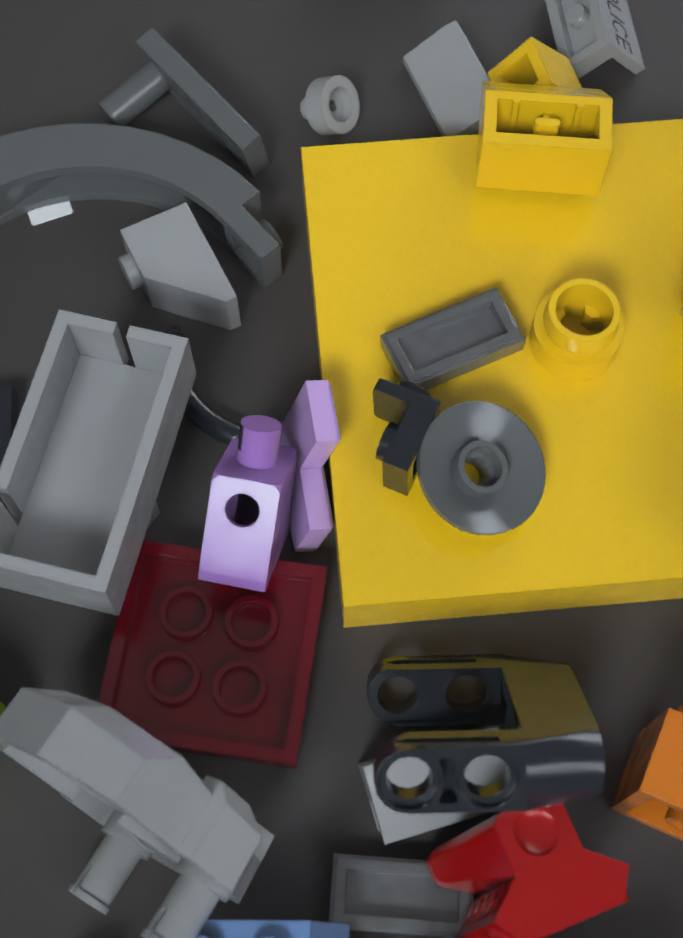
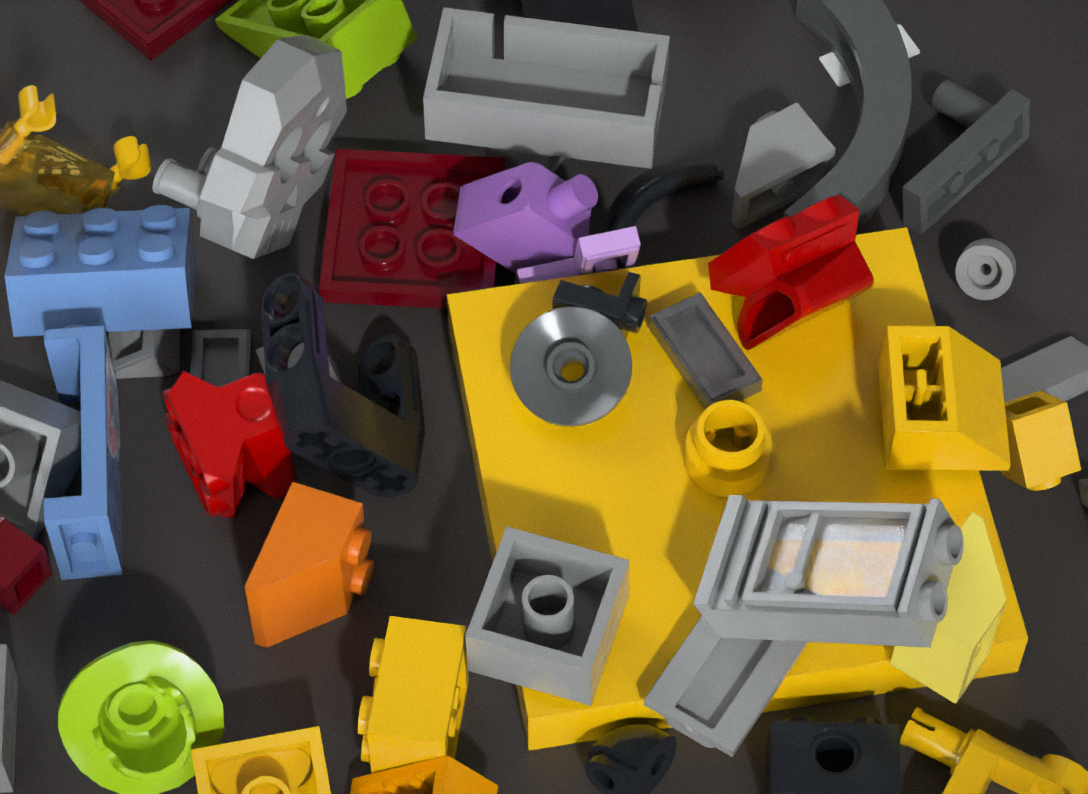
camera: 85 degrees right, 10 degrees down
(386, 232) = (793, 270): none -> red piece

